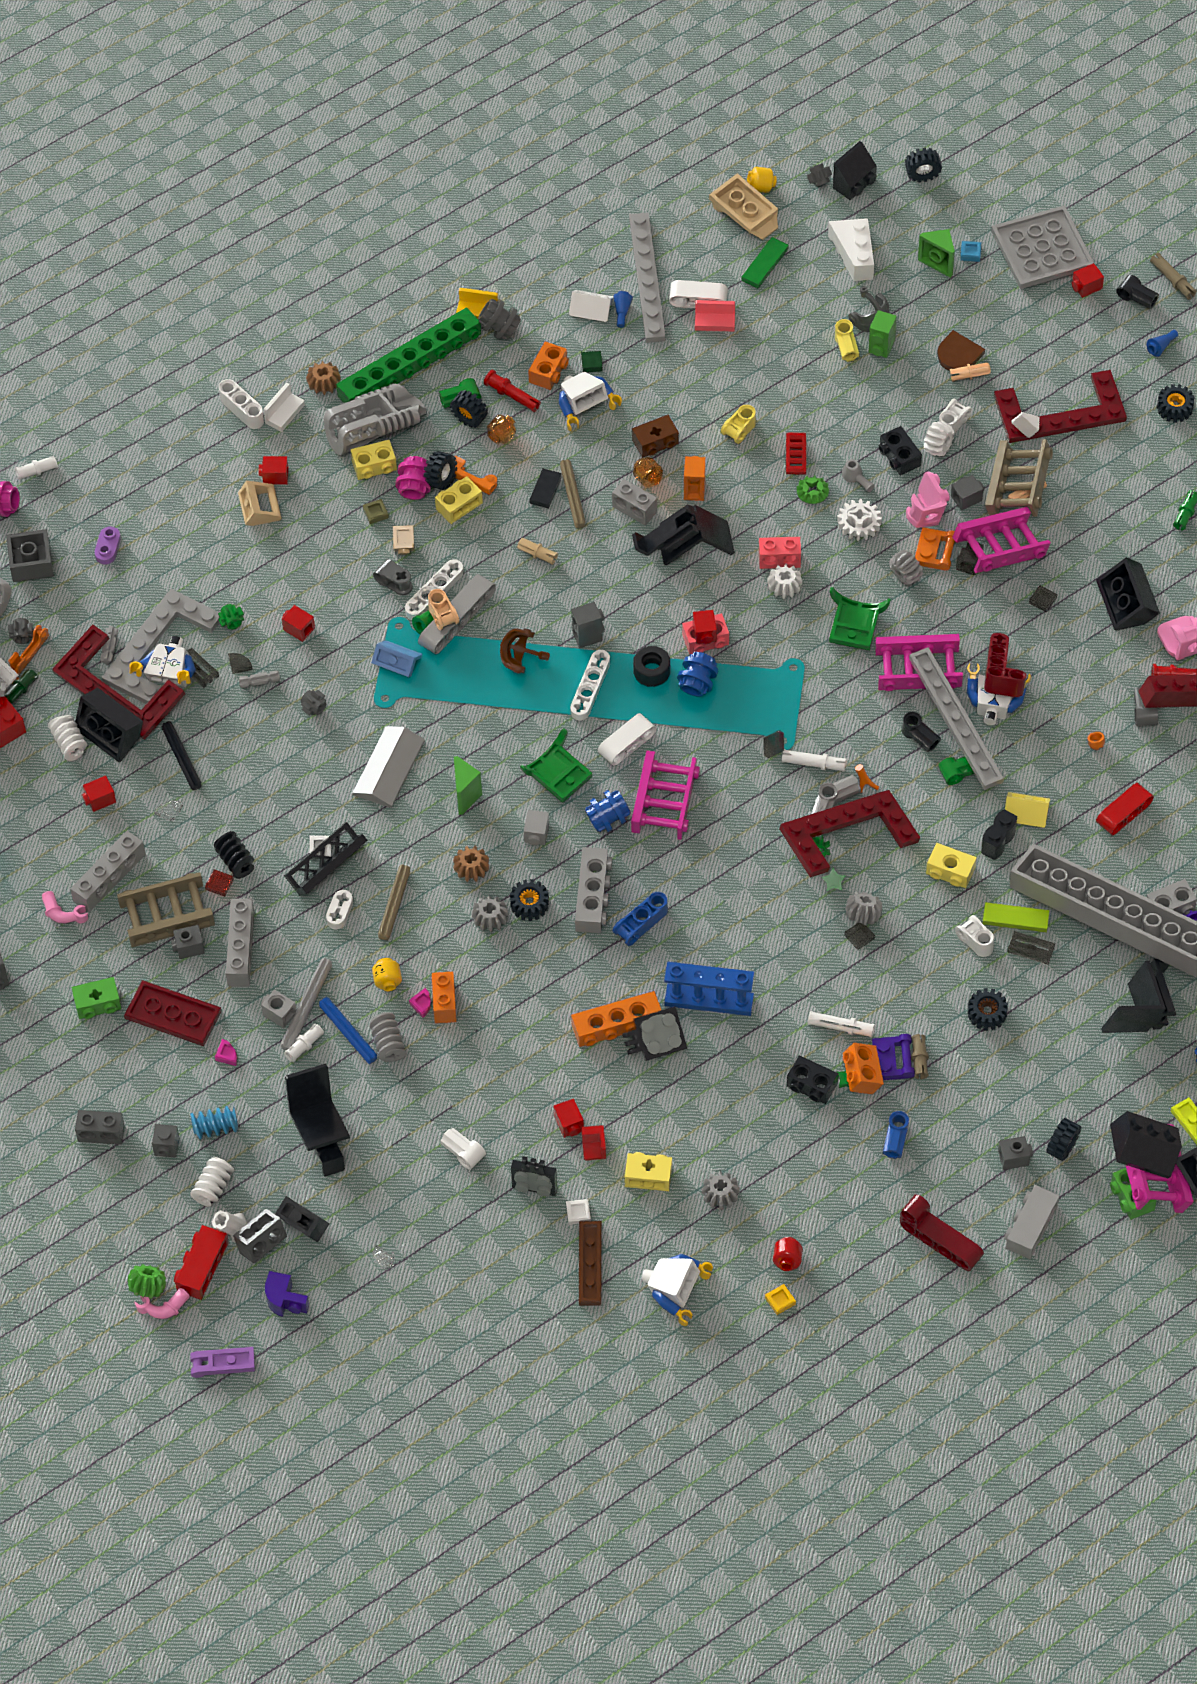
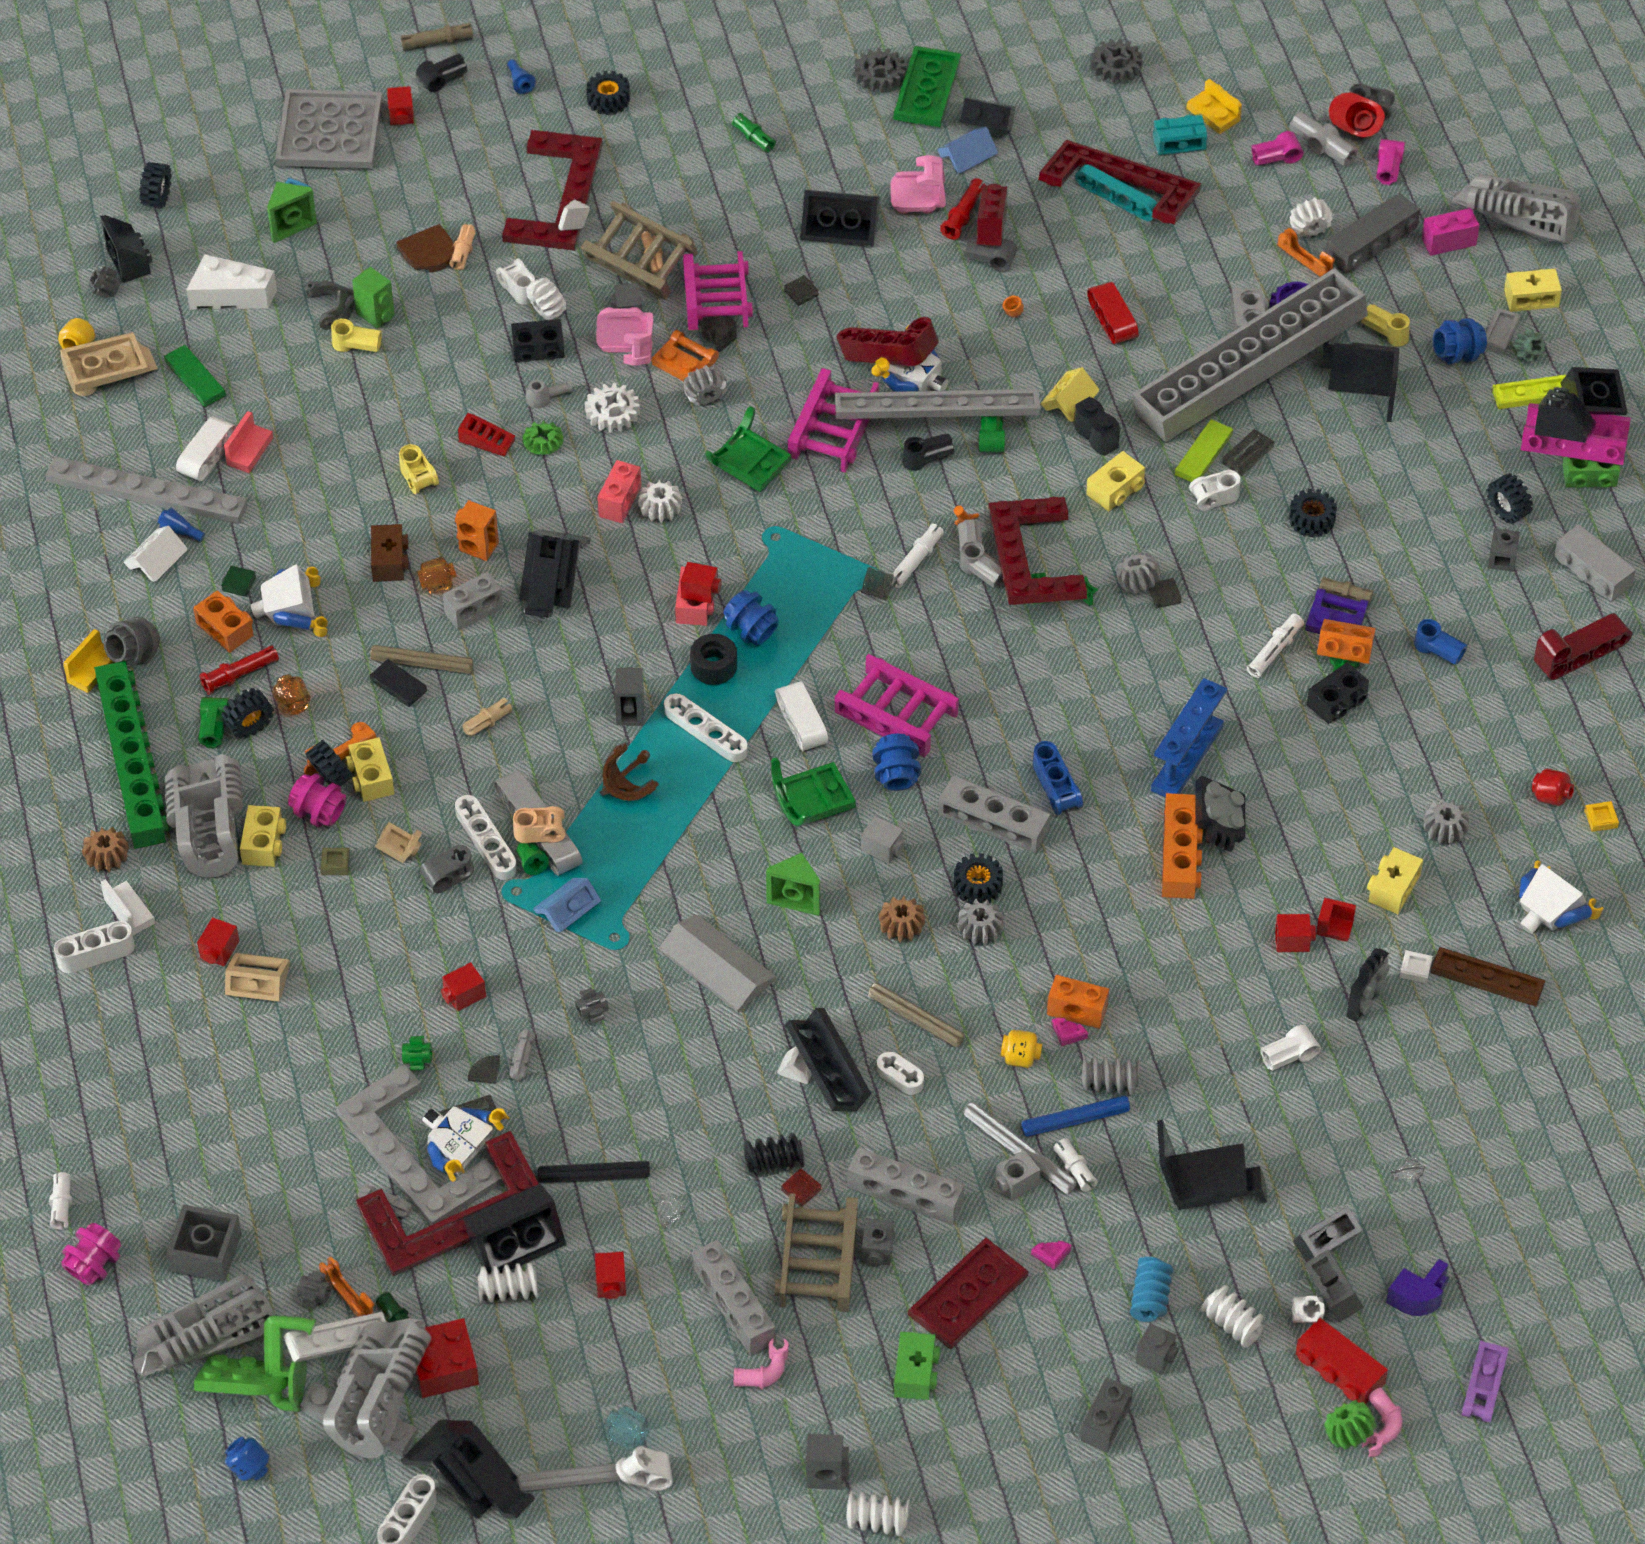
camera: 70 degrees left, 5 degrees down
(108, 544) = (223, 1159): medium lavender plate -> none

